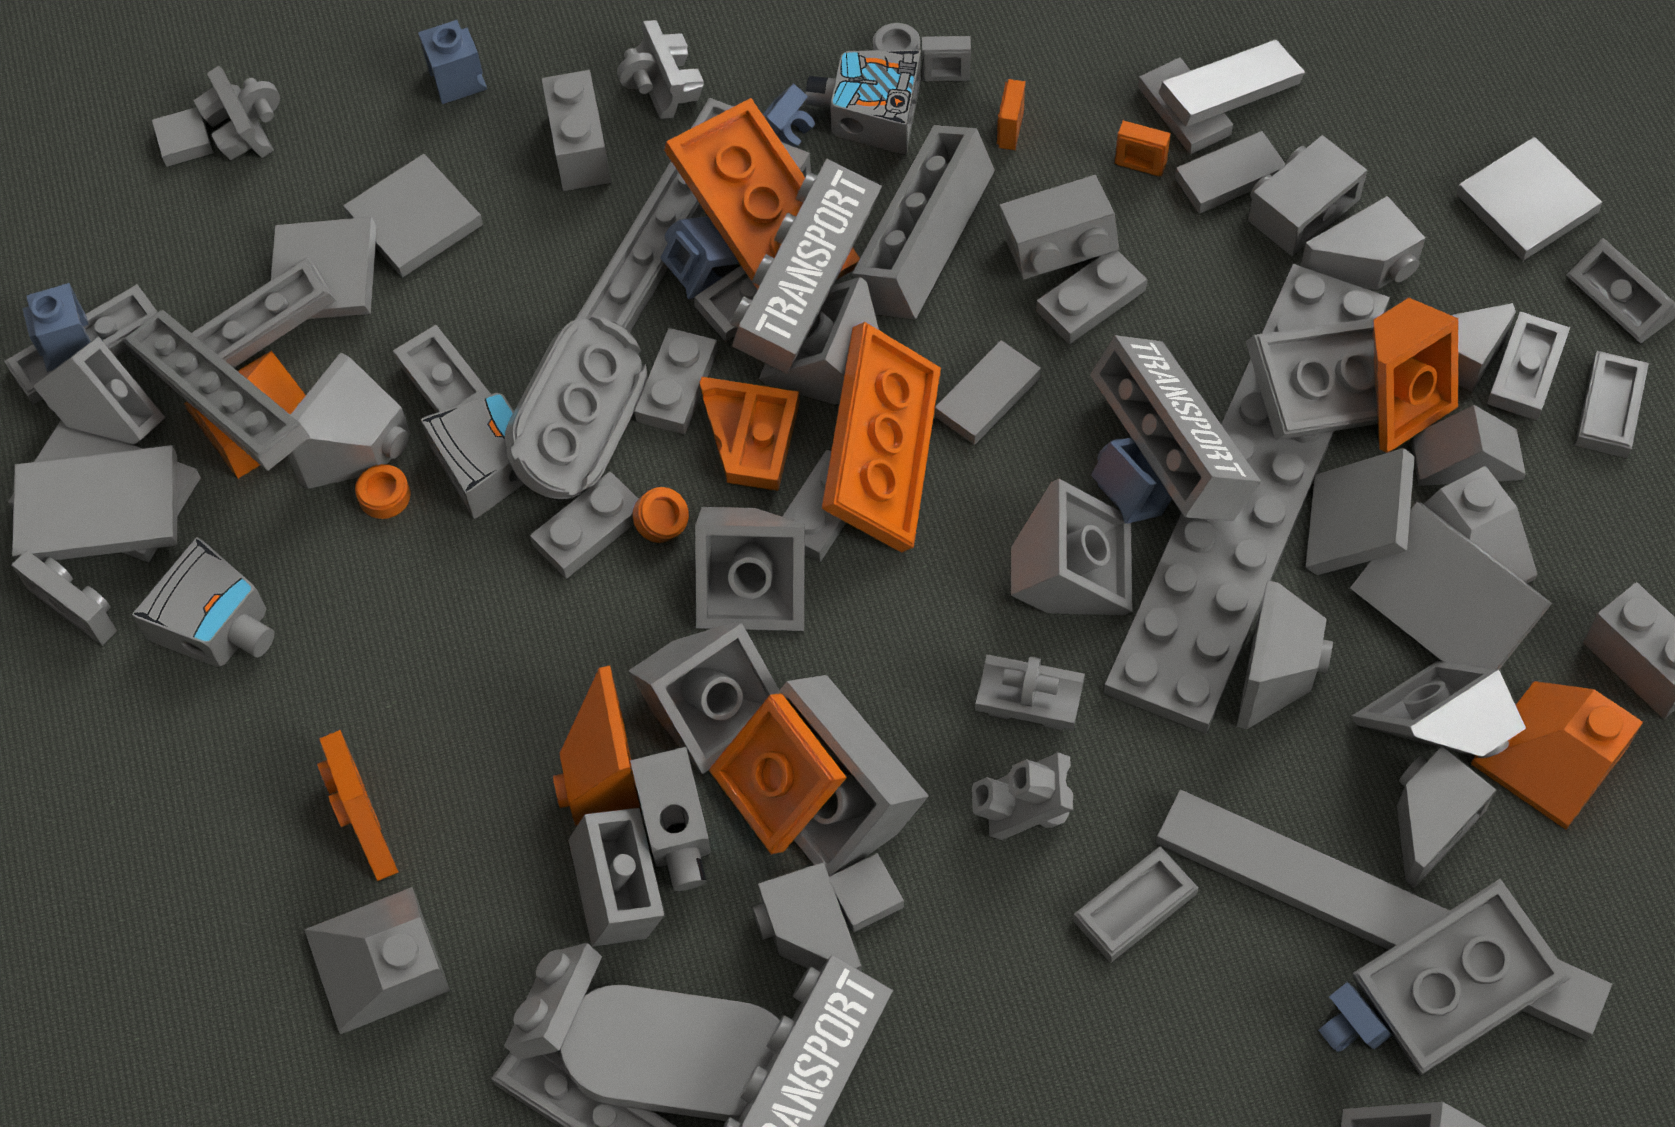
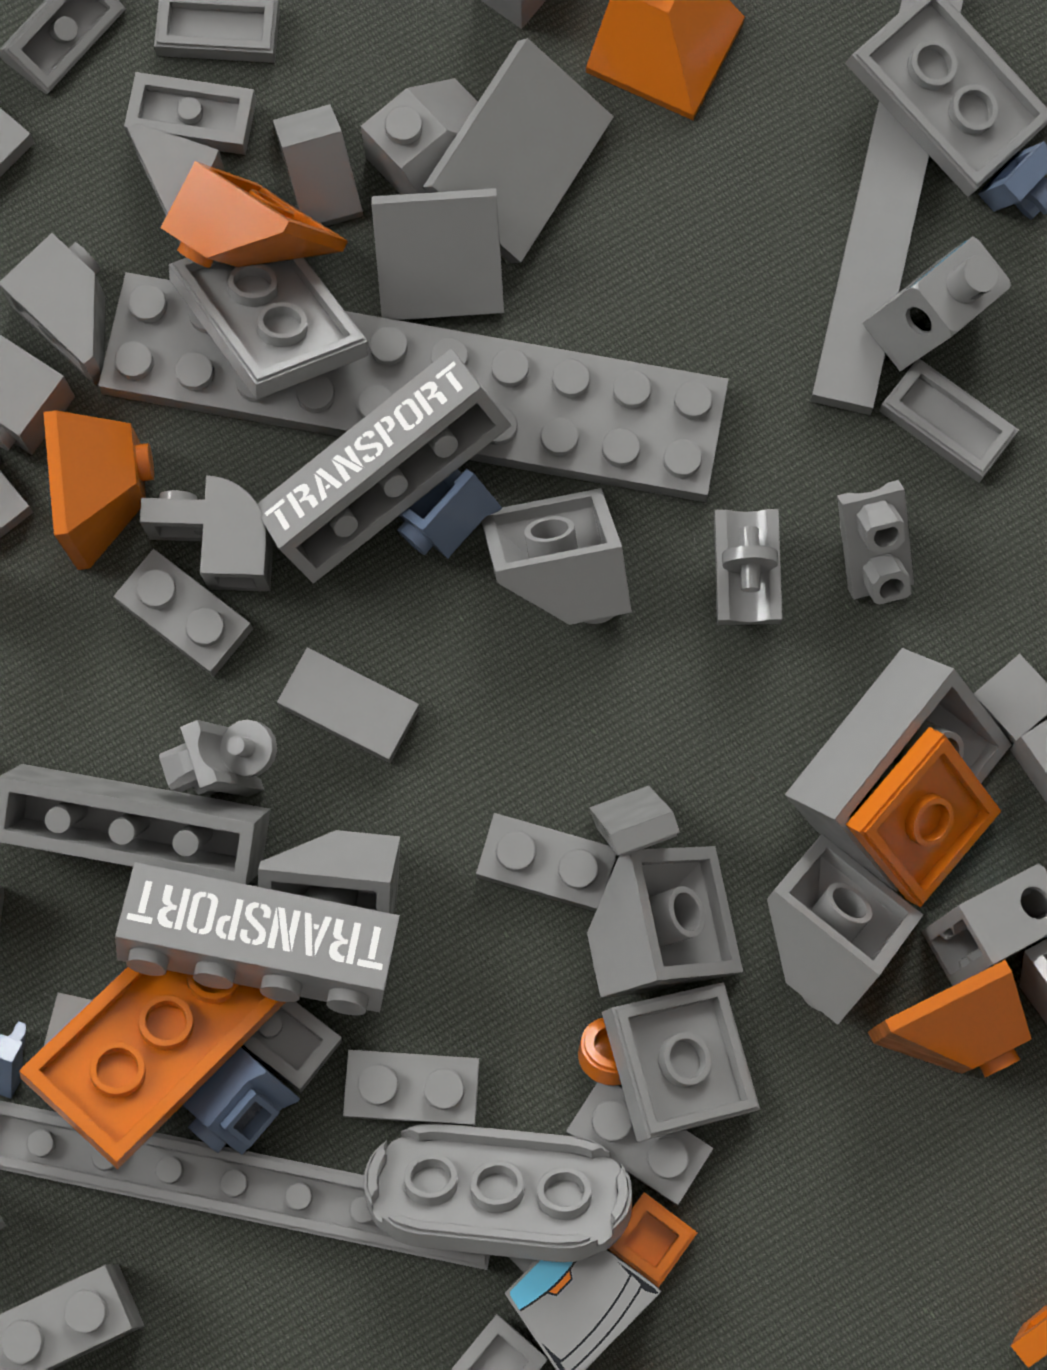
camera: 105 degrees left, 15 degrees up
(511, 517) = (653, 1240): none -> orange tile
(636, 555) = (680, 1061): none -> light grey tile
(750, 429) = (469, 973): orange wing -> none
(832, 551) = (634, 821): none -> light grey tile
(882, 438) = (456, 804): orange tile -> none
(958, 280) = (220, 758): none -> light grey hips
(1059, 226) = (107, 658): light grey brick -> none
(1158, 320) = (229, 524): none -> light grey brick
(1203, 231) = (94, 481): none -> orange slope
(1243, 901) = (950, 295): none -> light grey torso
(1283, 655) = (647, 314): light grey slope -> none
(1437, 809) = (776, 136): light grey slope -> none
(1448, 708) = (662, 142): light grey slope -> none

